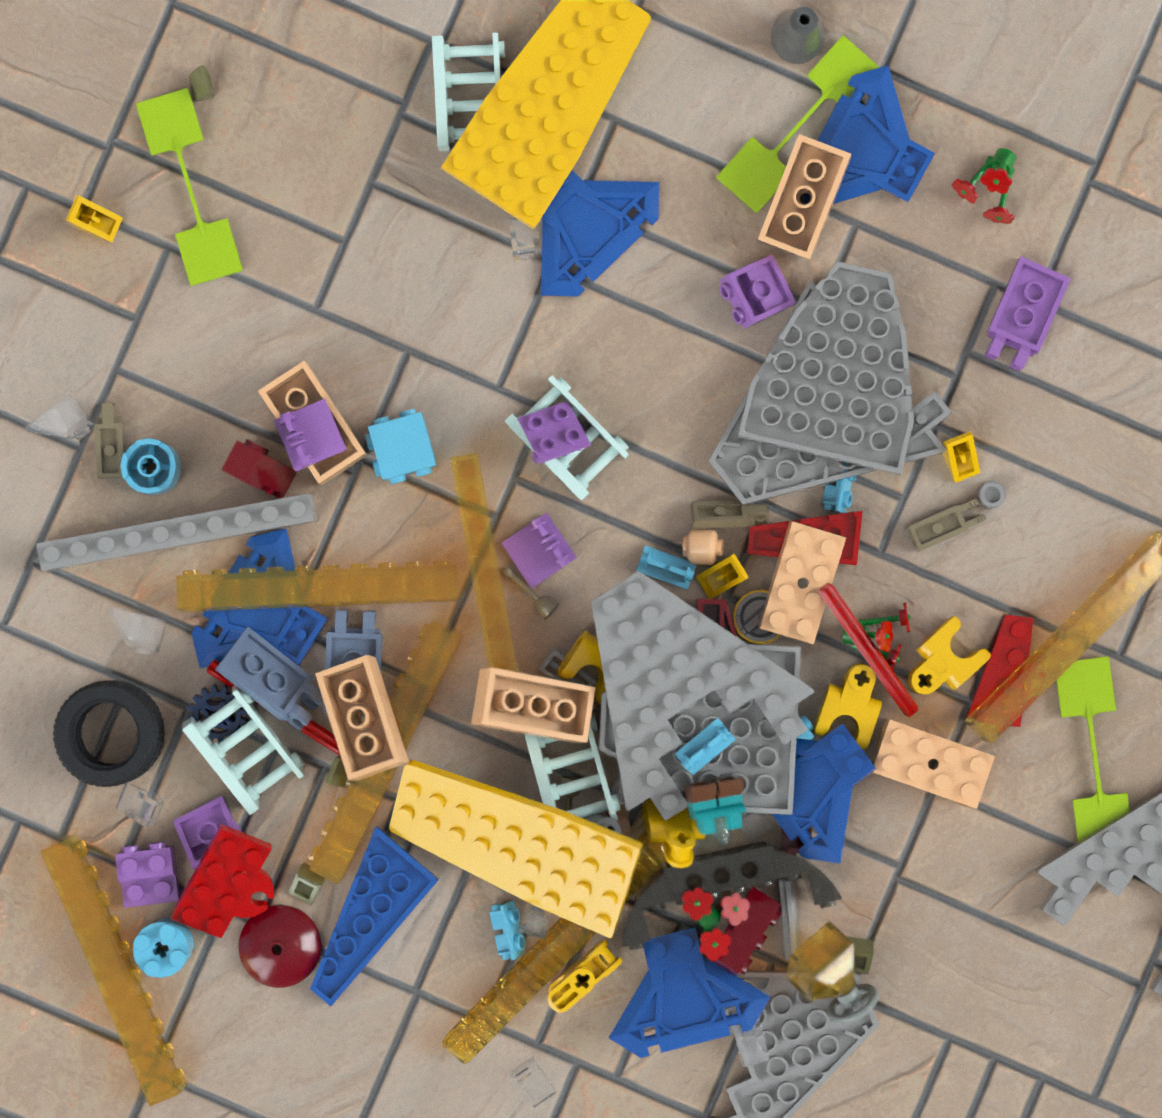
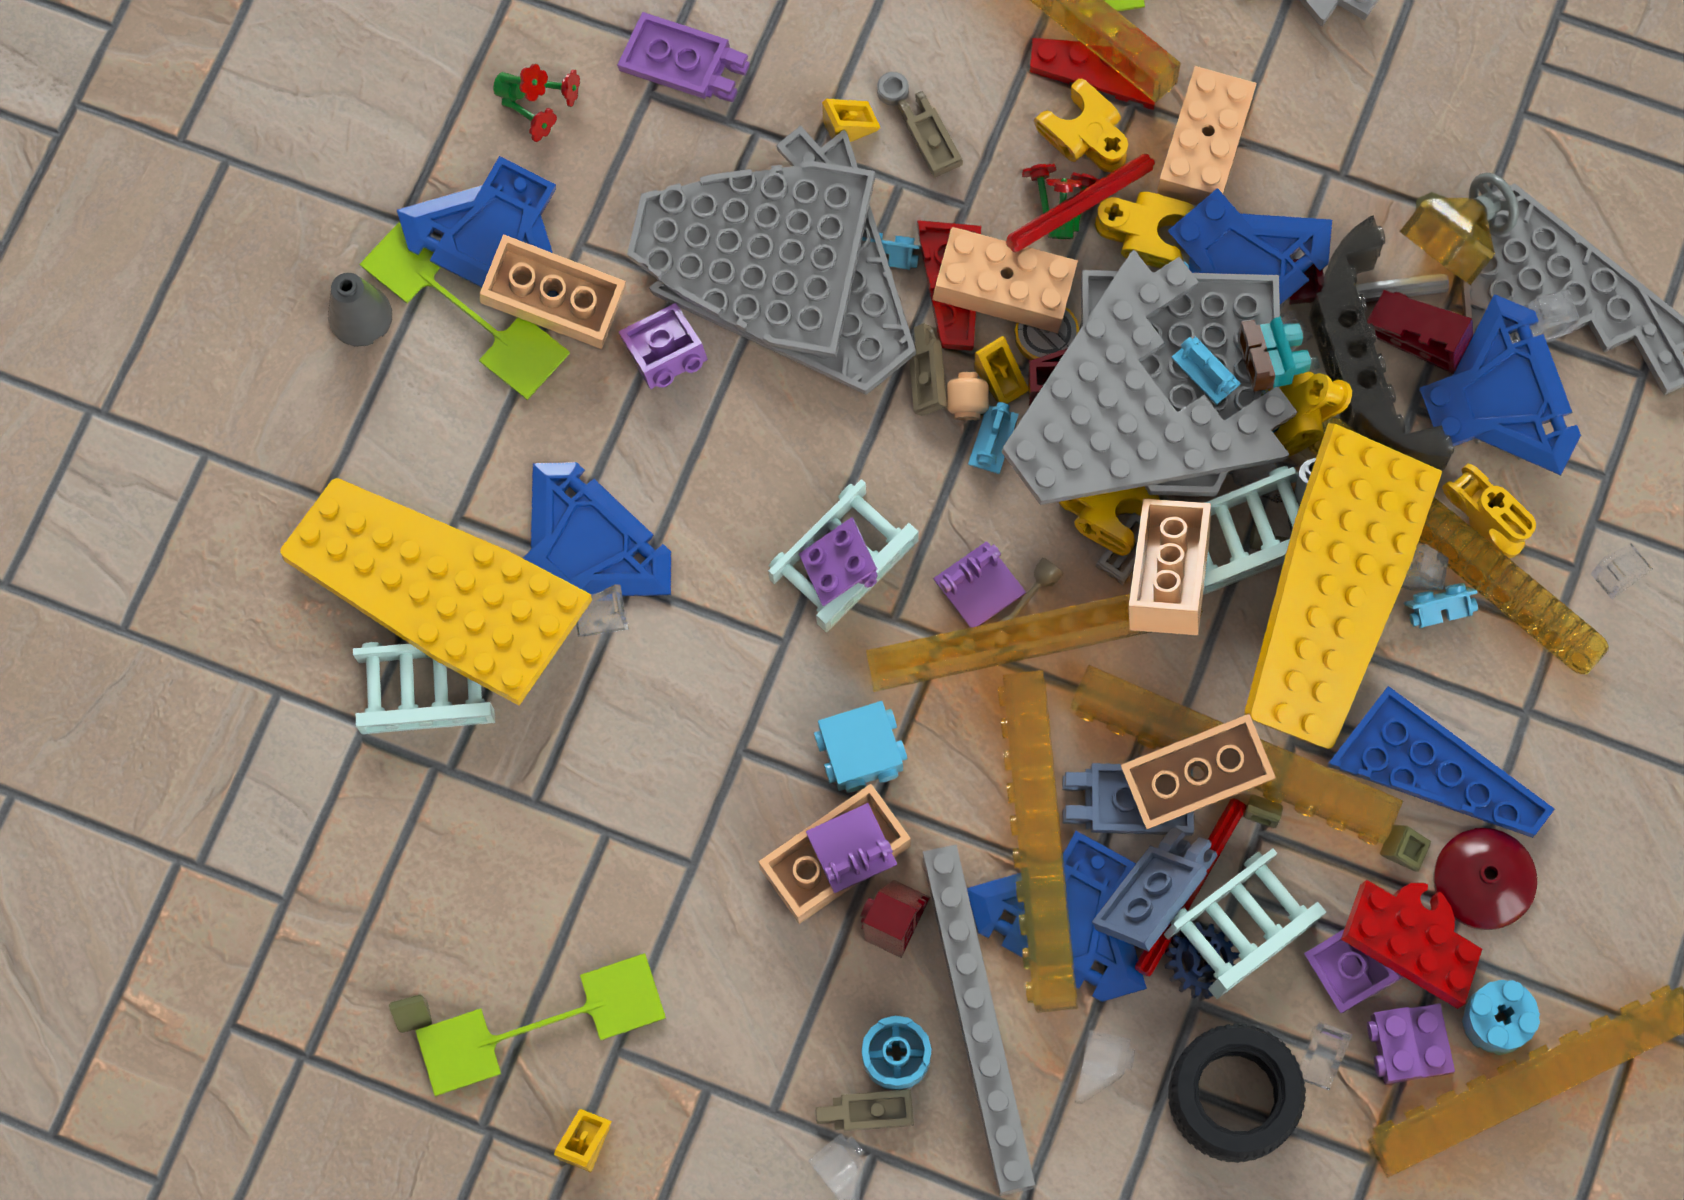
camera: 90 degrees left, 15 degrees down
(708, 917) = (1405, 371): red plant -> none

